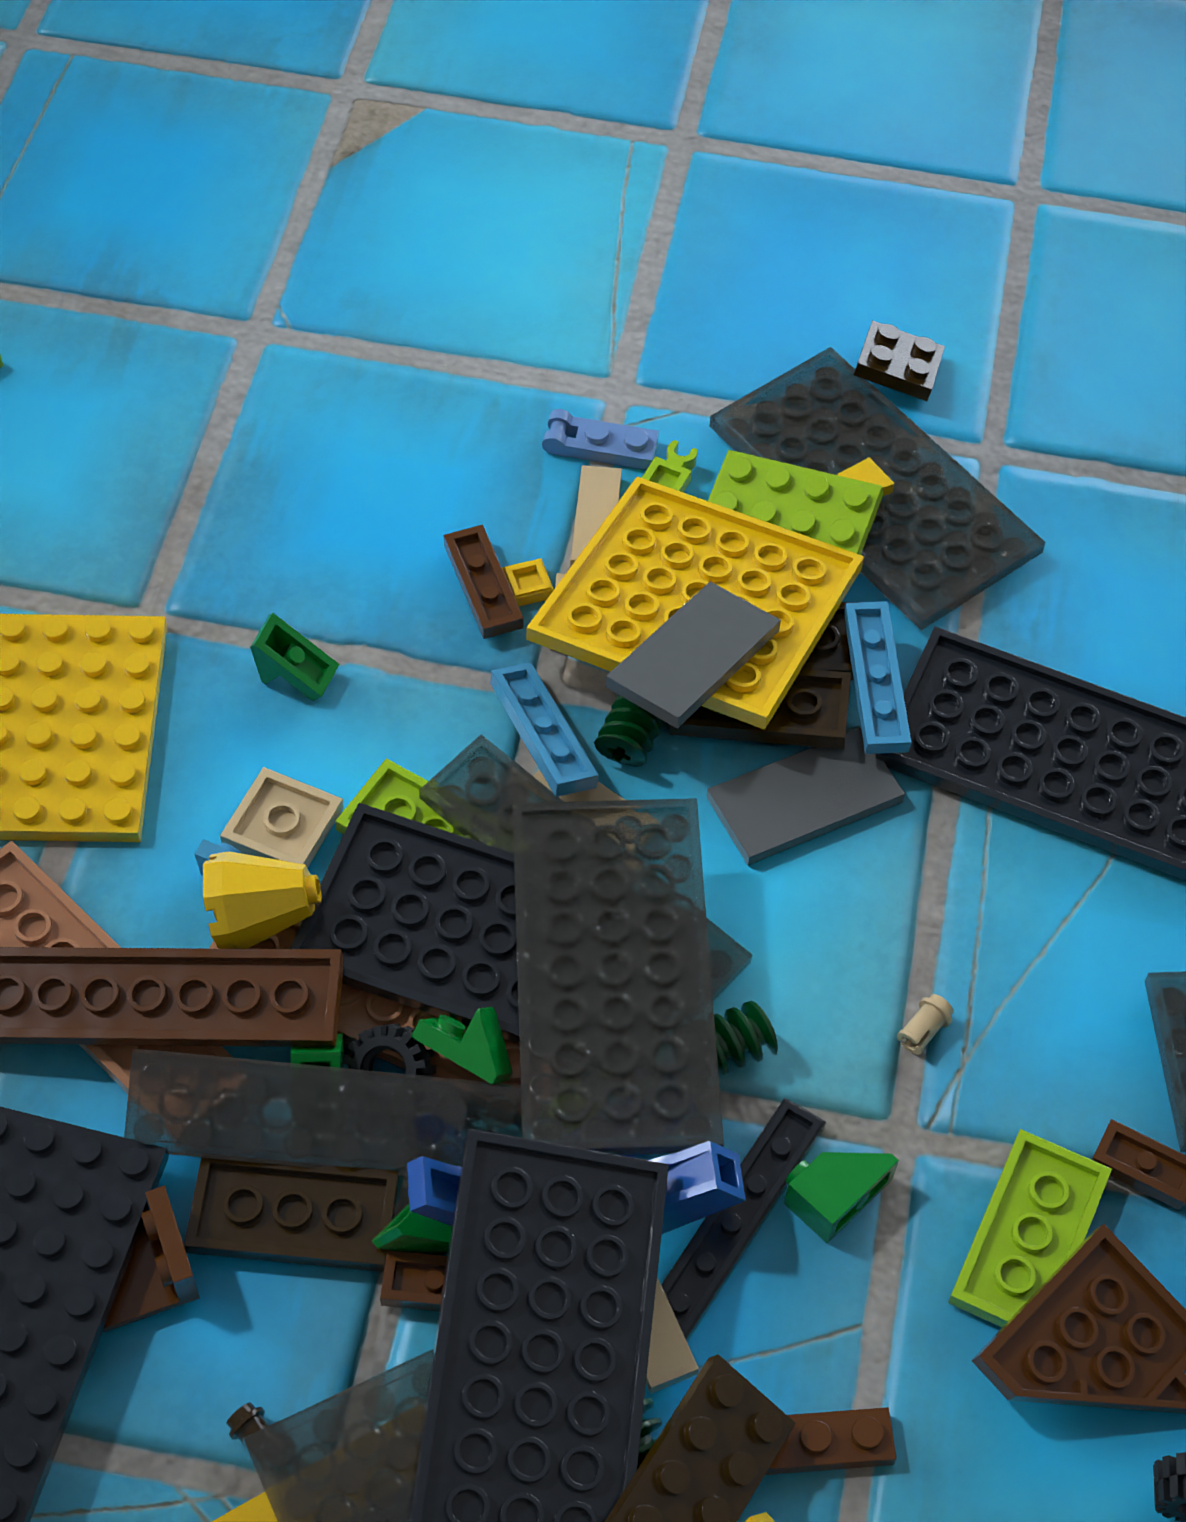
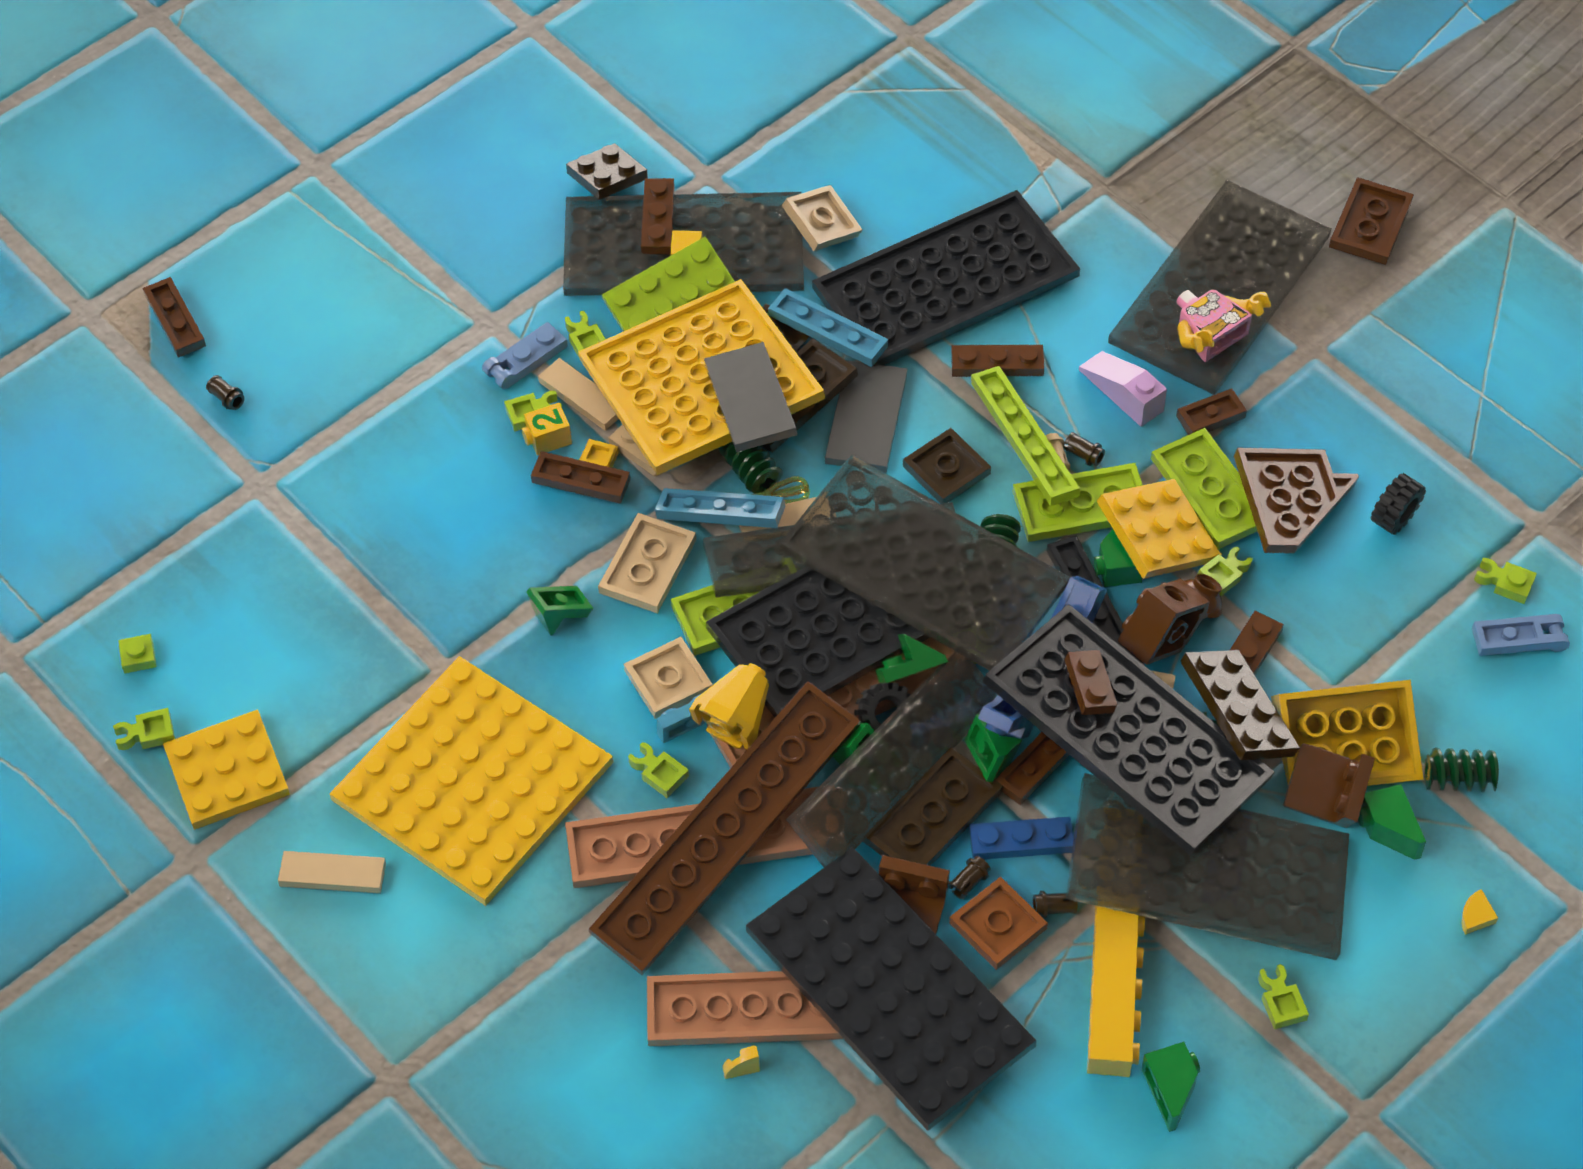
camera: 50 degrees left, 0 degrees up
(152, 893) = (659, 772): none -> lime plate
(183, 1386) = (998, 923): none -> dark orange plate
(230, 1310) = (969, 877): none -> dark brown pin
(327, 1328) = (1021, 838): none -> blue plate
(335, 242) = (230, 396): none -> dark brown pin
(392, 147) = (174, 317): none -> reddish brown plate
(420, 709) = (647, 563): none -> tan plate
(517, 513) = (547, 429): none -> yellow brick
(530, 483) = (524, 404): none -> lime plate
(560, 1262) = (1090, 682): none -> reddish brown plate
(610, 767) = (804, 488): none -> clear yellow piece
(778, 1305) = (1170, 616): none -> reddish brown brick
(802, 919) = (946, 466): none -> dark brown plate
(879, 1097) = (1075, 515): none -> lime plate
(880, 433) = (657, 216): none -> reddish brown plate
(904, 1208) = (1158, 528): none -> yellow plate
(910, 974) = (1025, 436): none -> lime plate
(910, 1332) = (1226, 571): none -> lime plate
(961, 1060) = (1084, 449): none -> dark brown pin
(1007, 880) = (1012, 359): none -> reddish brown plate
(1026, 581) = (822, 217): none -> tan plate
(1094, 1041) = (1127, 386): none -> lavender slope

